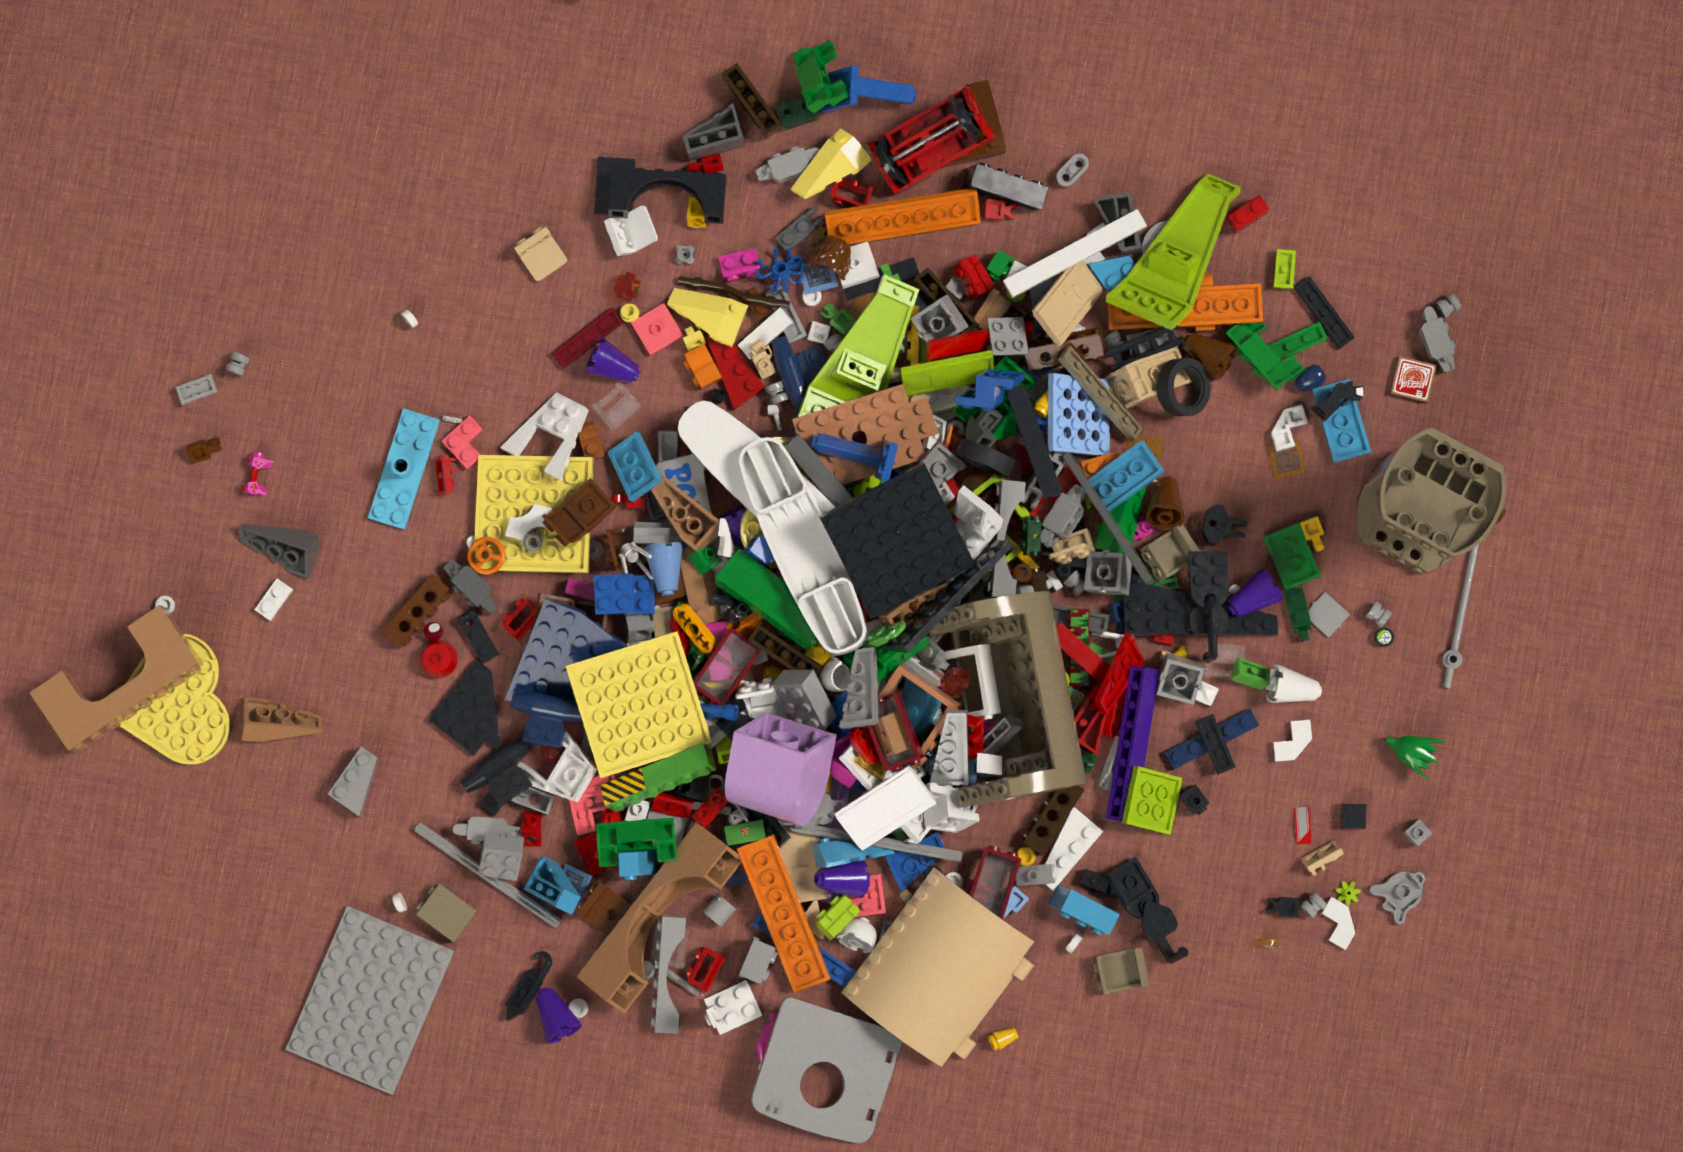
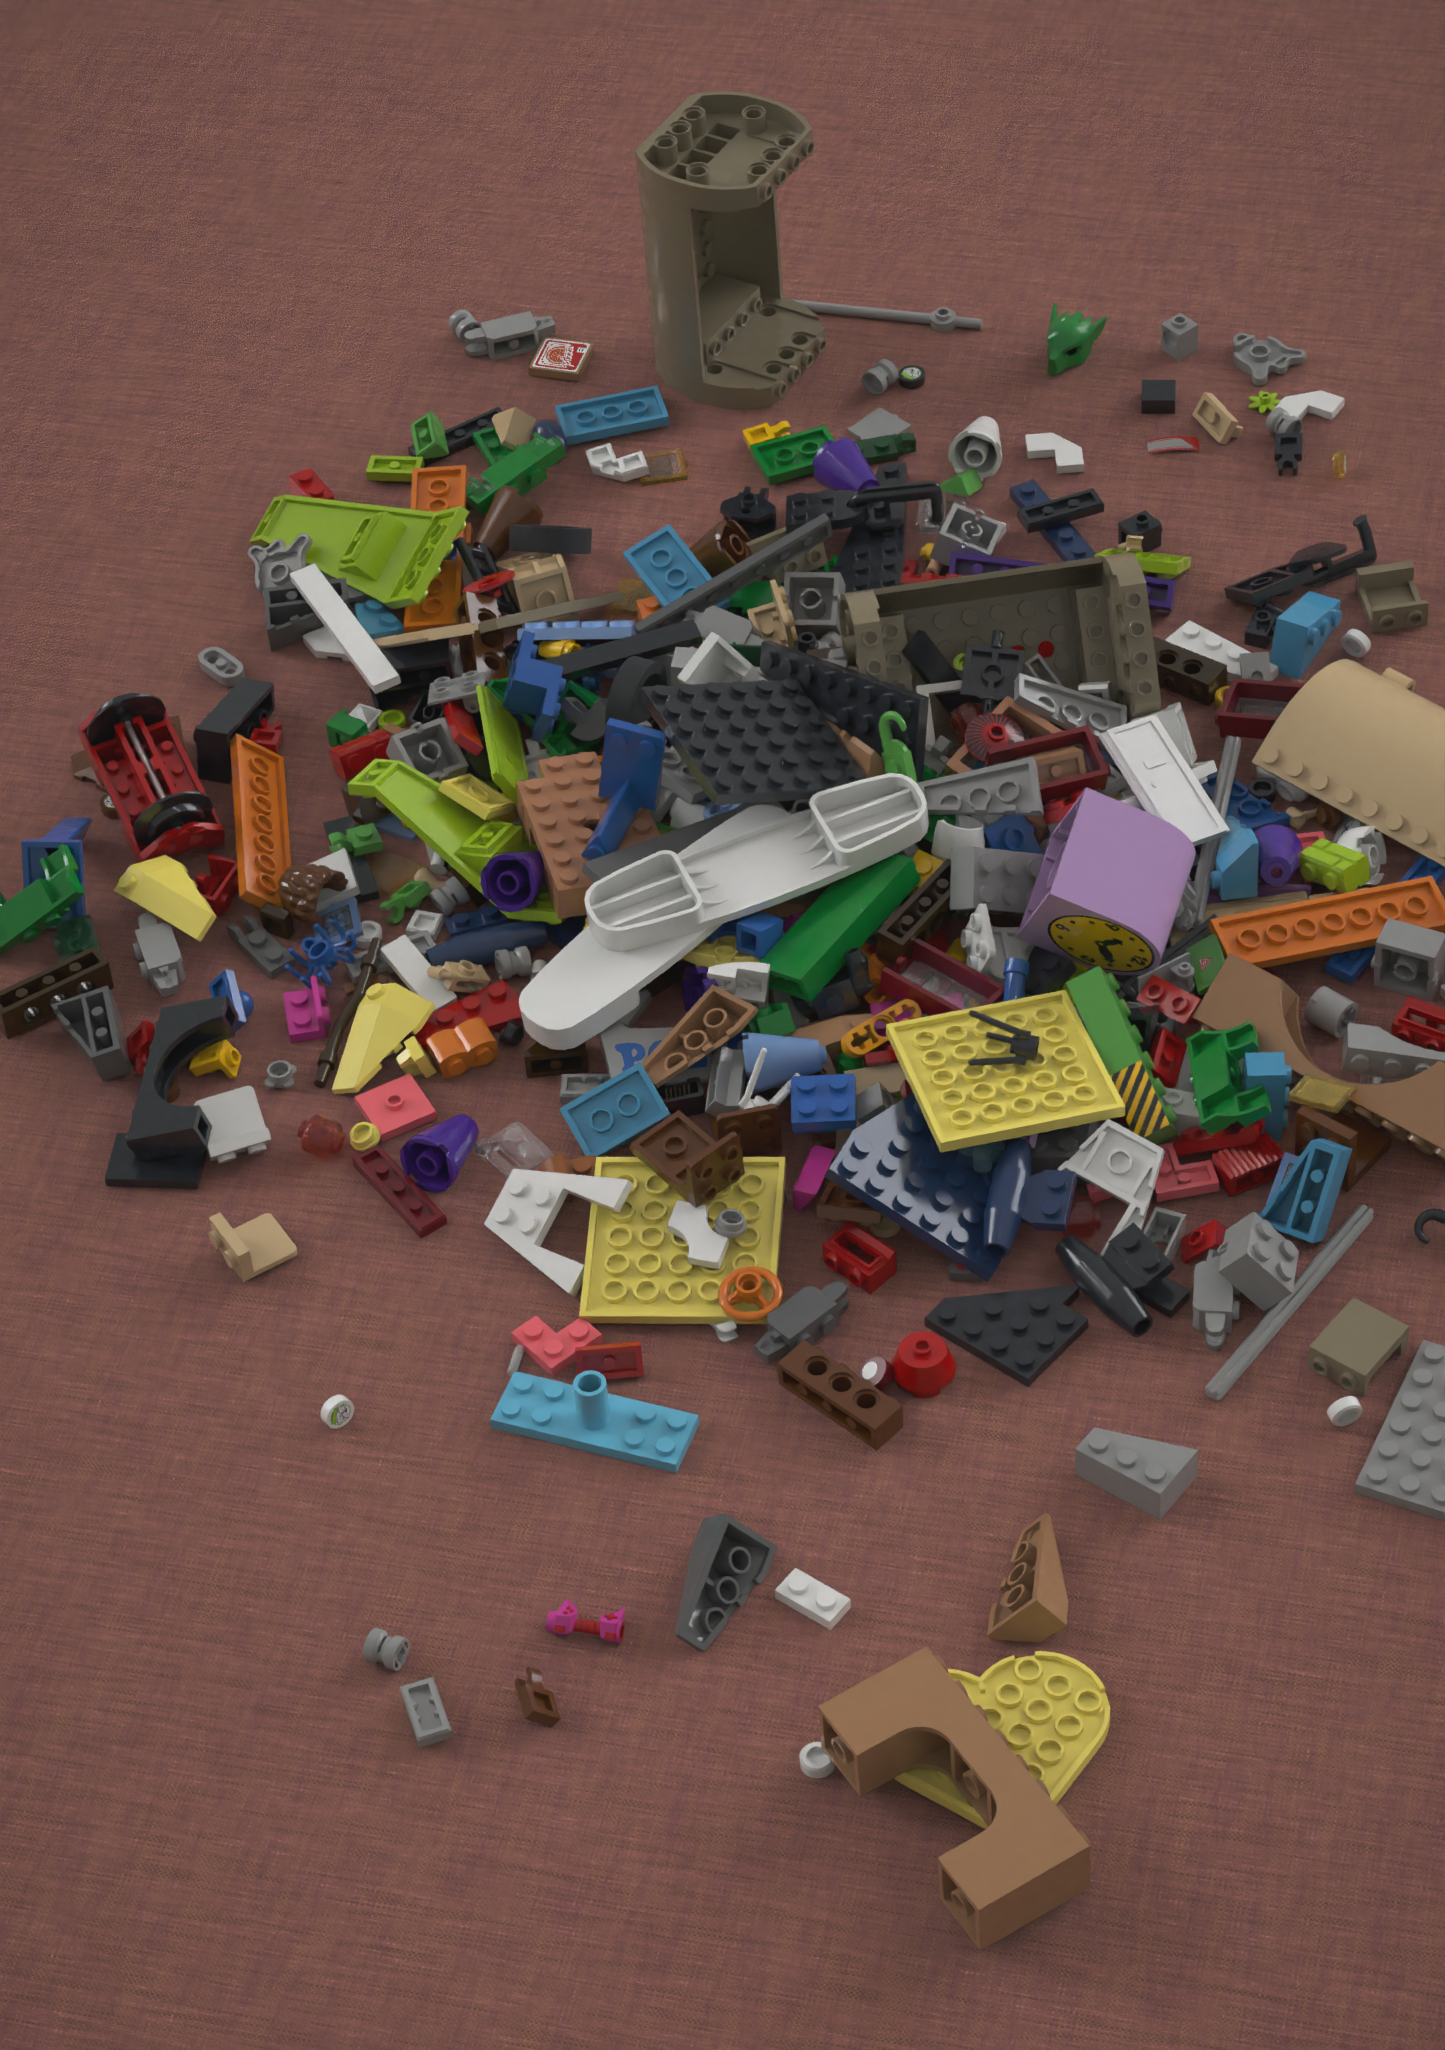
camera: 80 degrees left, 40 degrees down
(478, 636) = (884, 1320): black plate -> none
(619, 898) = (1322, 1093): none -> clear yellow piece
(648, 716) = (1022, 1043): none -> black plant
(741, 216) = (227, 985): none -> blue tile
(823, 391) = (513, 879): none -> dark purple cone
(898, 354) = (477, 796): none -> light yellow tile
(928, 693) = (980, 737): none -> dish
(980, 695) = (990, 672): none -> black plate
(1004, 662) = (933, 667): none -> black tile
(1118, 348) = (490, 584): none -> red dish
(1167, 199) = (277, 561): none -> light grey tile
(1174, 794) = (1132, 544): none -> tan hand
(1315, 291) = (429, 437): none -> bright green slope
(1318, 351) = (513, 427): none -> tan slope
(1340, 393) = (585, 399): black hips -> none

